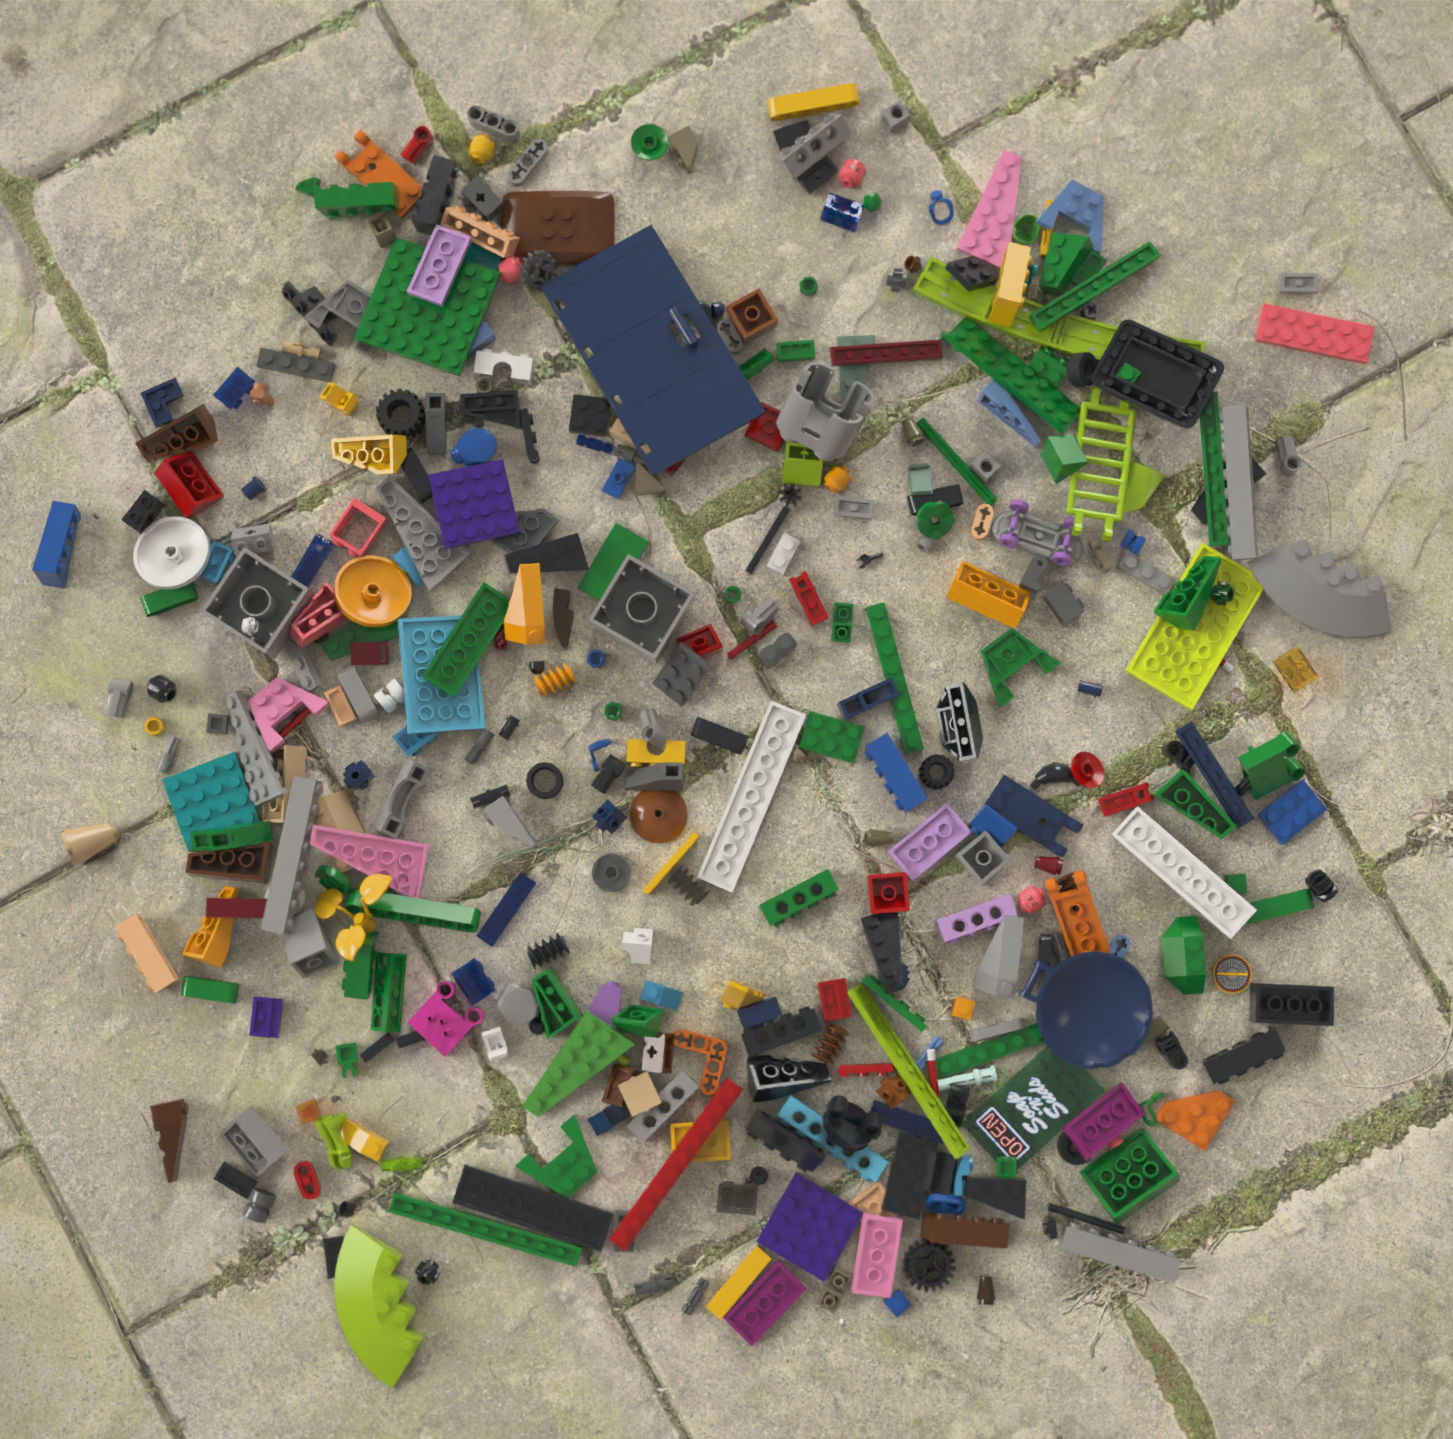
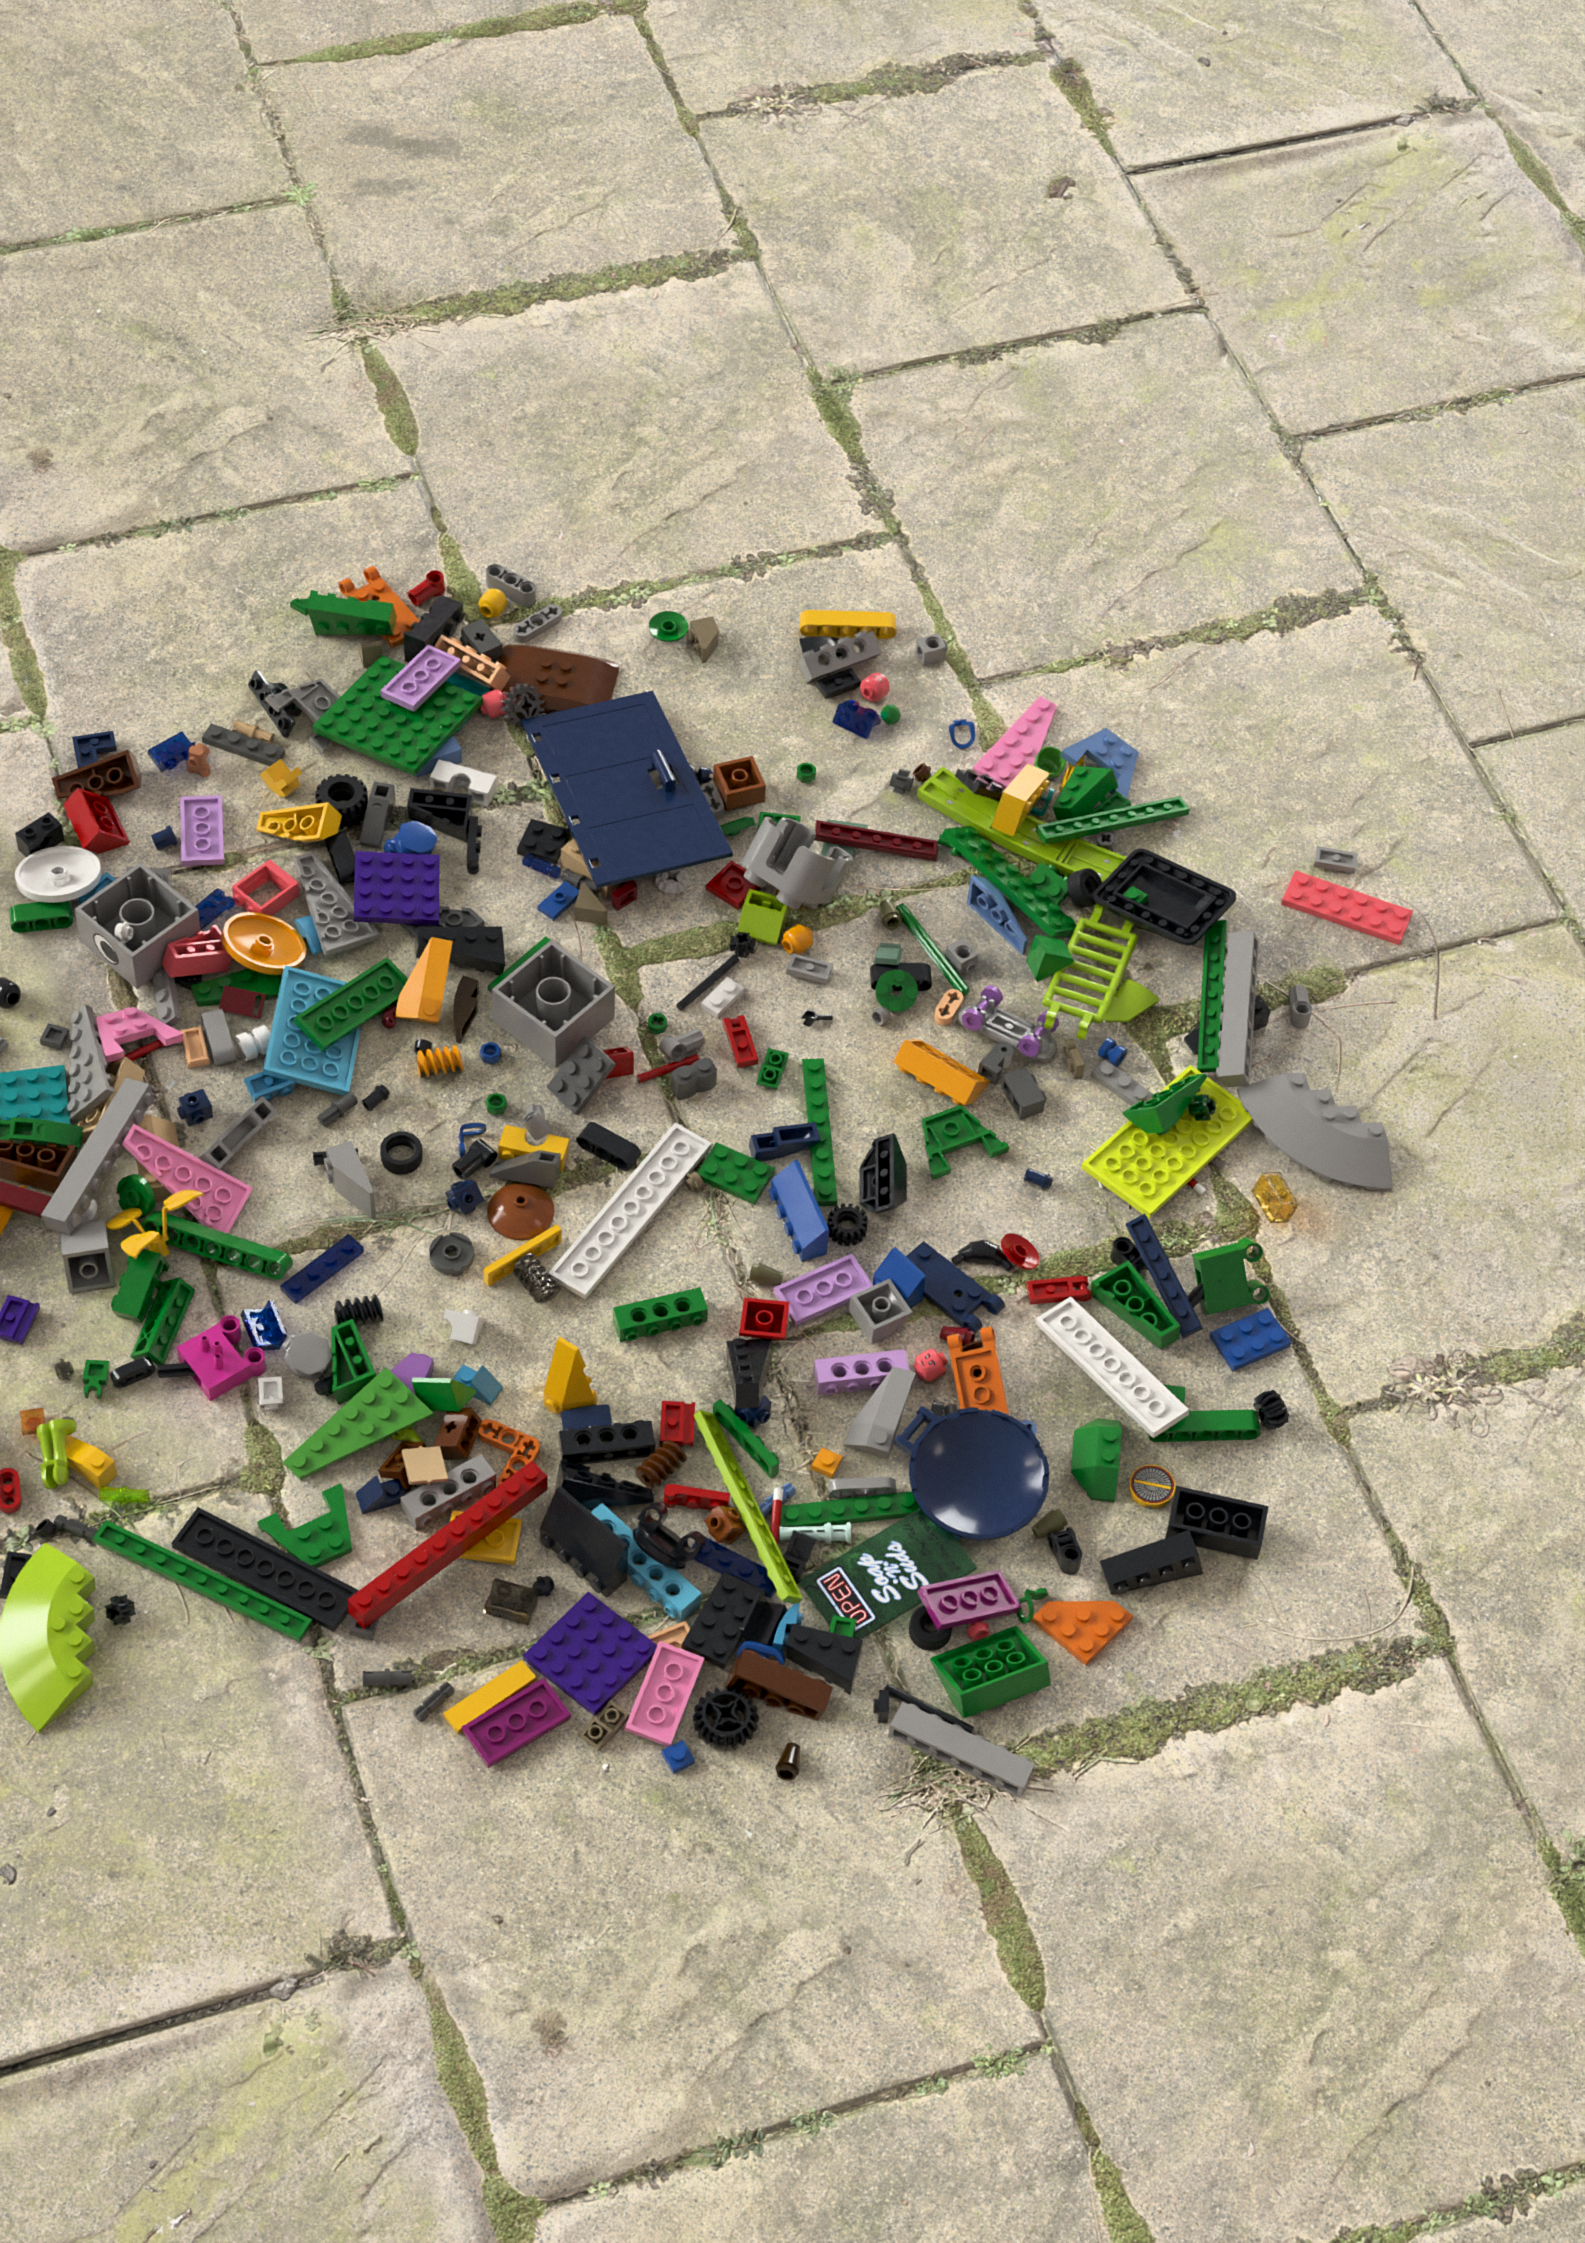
camera: 10 degrees right, 30 degrees down
(284, 471) = (202, 830): none -> lavender plate
(371, 1201) = (75, 1527): none -> dark grey axle

